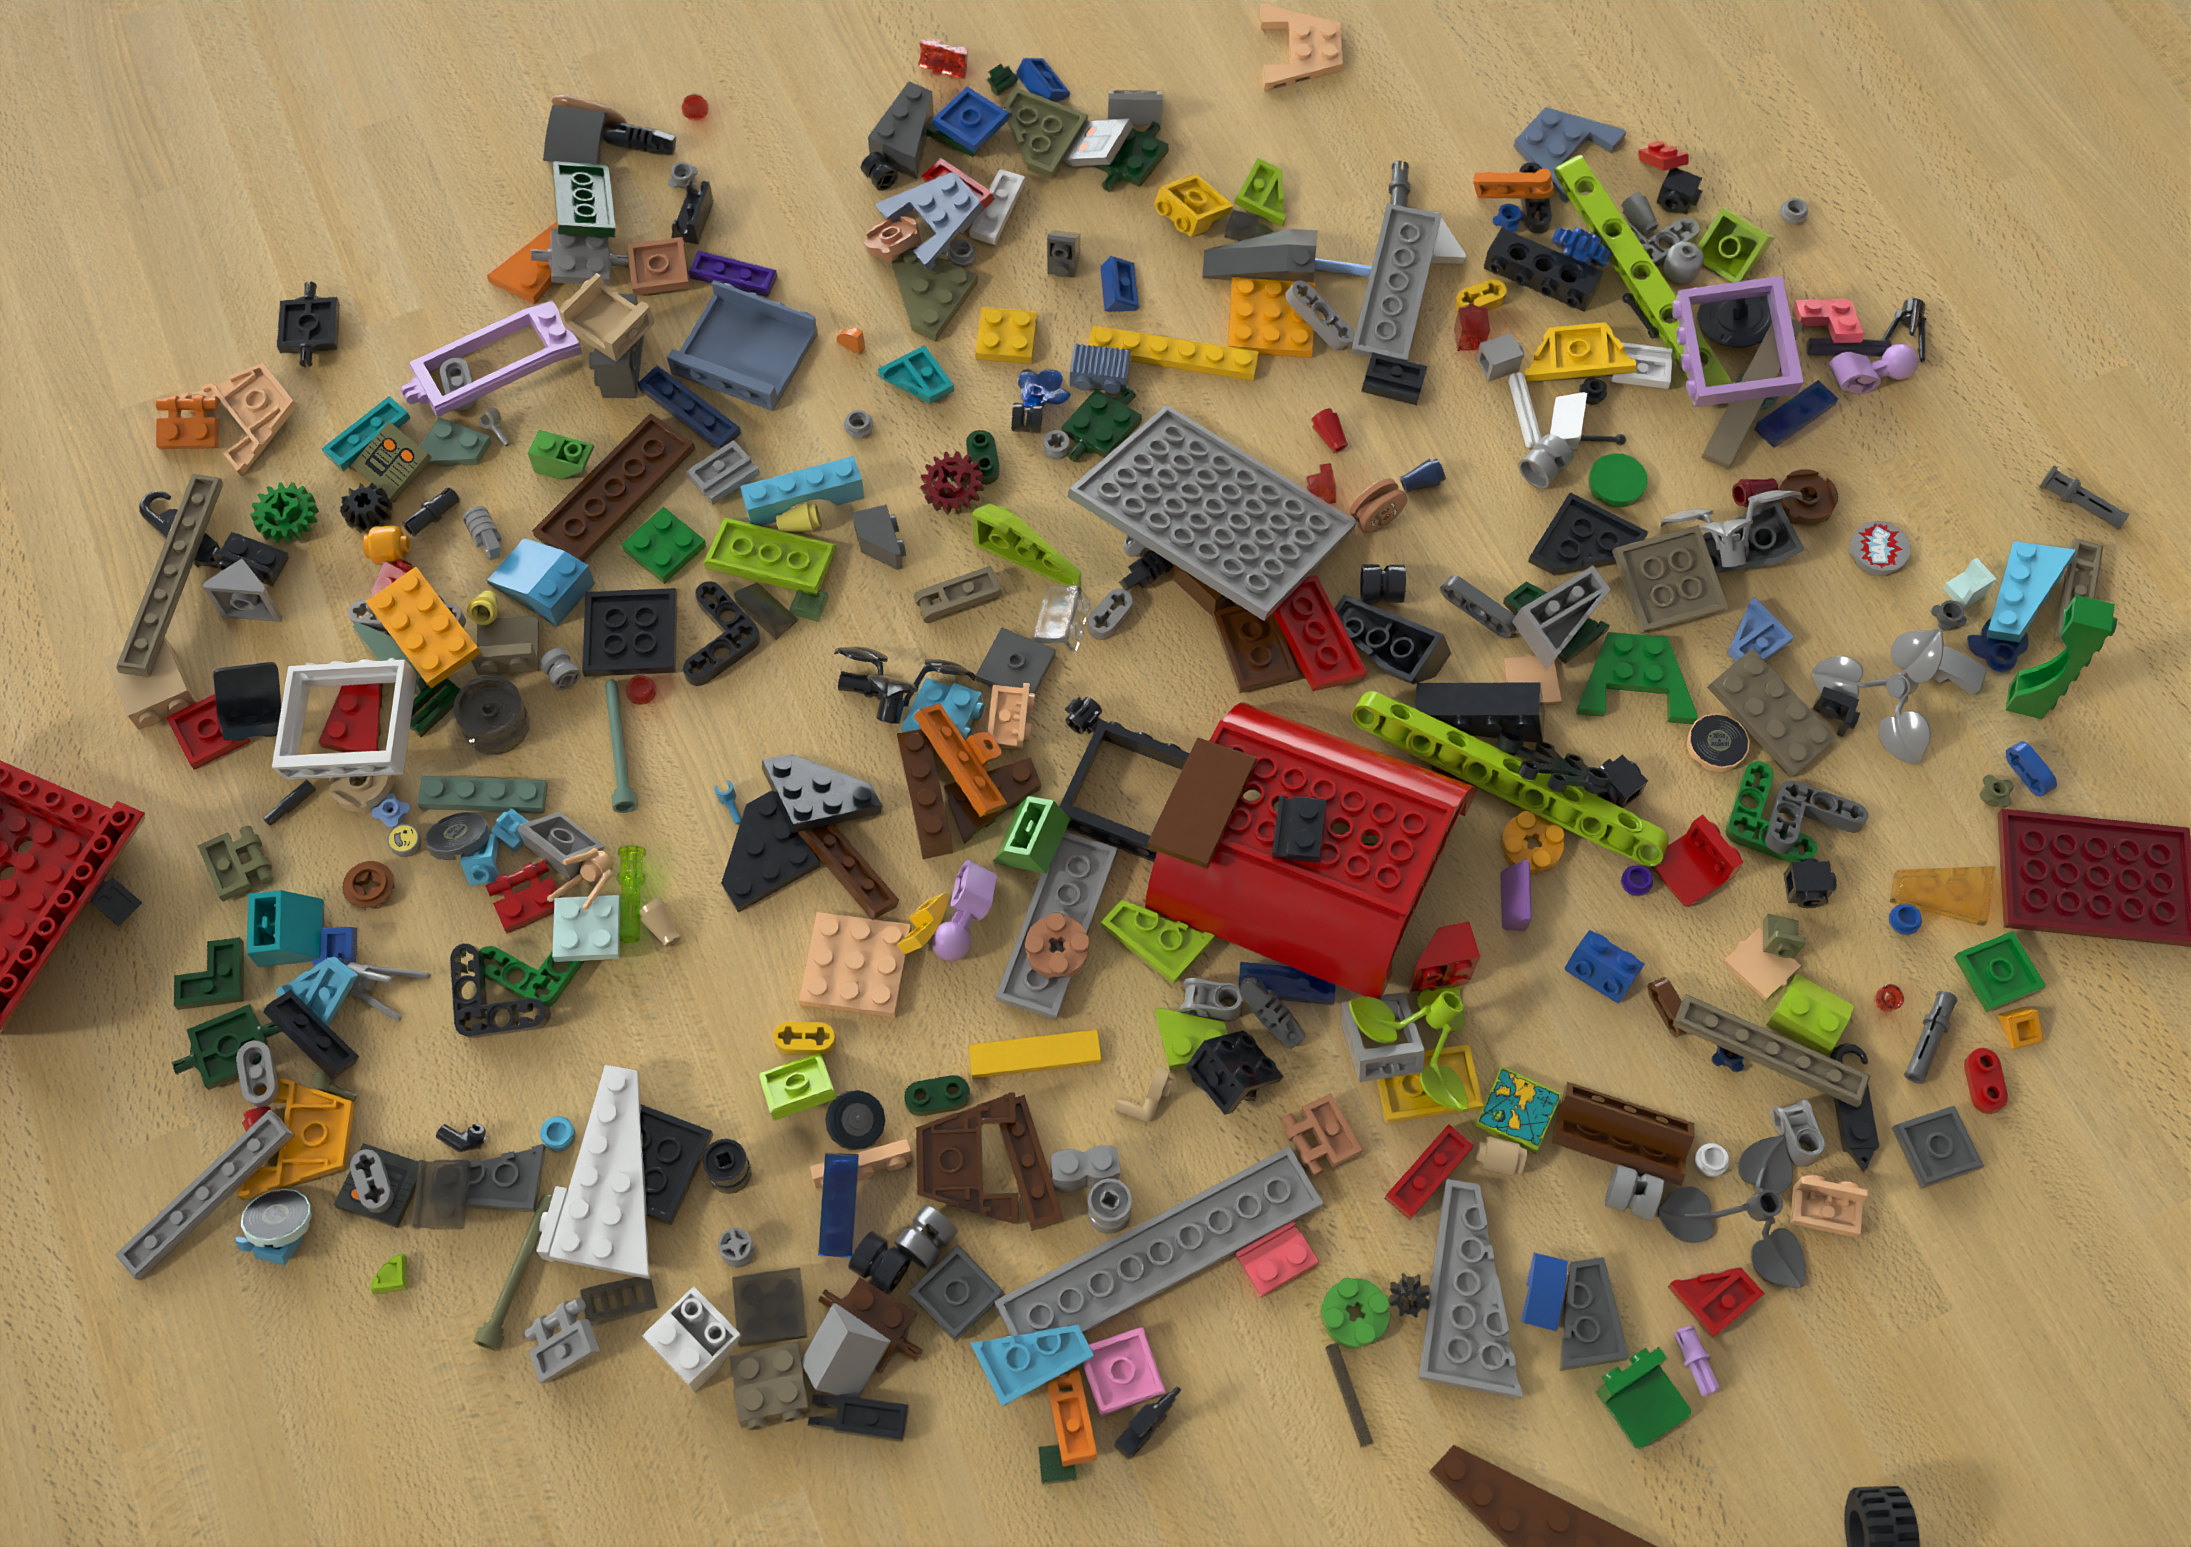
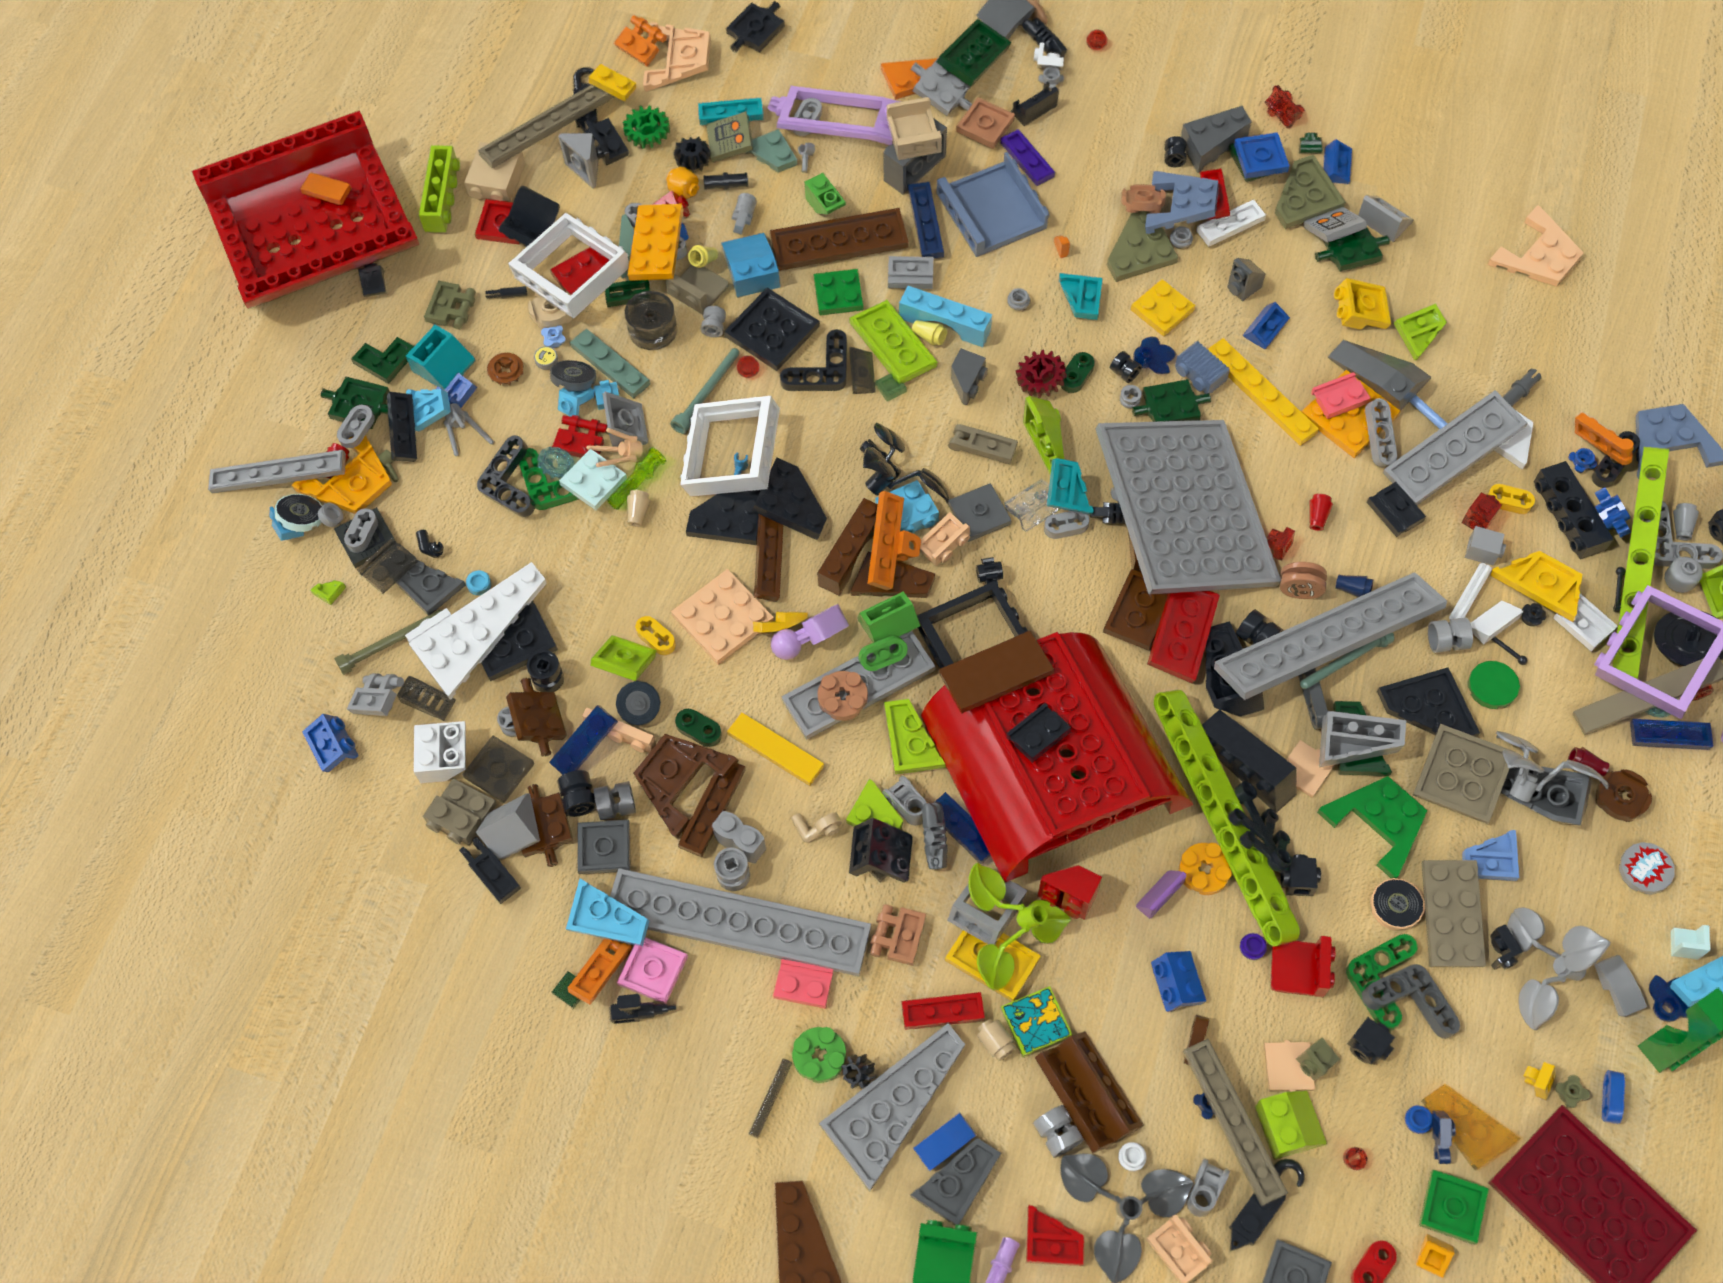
camera: 45 degrees right, 0 degrees up
(98, 741) = (439, 188): none -> lime brick
(203, 489) = (612, 82): none -> yellow plate
(316, 1192) = (330, 514): none -> light grey tile
(530, 933) = (564, 462): none -> clear light blue gear
(554, 1433) = (329, 741): none -> blue bracket
(669, 157) = (1050, 60): none -> white bracket
(672, 745) = (703, 414): none -> white window
(761, 1220) = (536, 716): none -> reddish brown plate
(1059, 877) = (882, 654): none -> bright green plate
(1087, 575) = (1067, 487): none -> teal wing
(1245, 226) = (1387, 343): clear smoke plate -> none
(1253, 305) = (1340, 395): none -> coral plate
(1450, 540) = (1329, 635): none -> light grey plate
(1488, 509) = (1344, 660): none -> sand green piece
(1935, 1026) = (1365, 1205): dark grey pin -> none
(1937, 912) = (1443, 1132): none -> plate
(1950, 608) = (1655, 943): dark grey plate -> none
(1966, 800) = (1541, 1080): none -> yellow tile

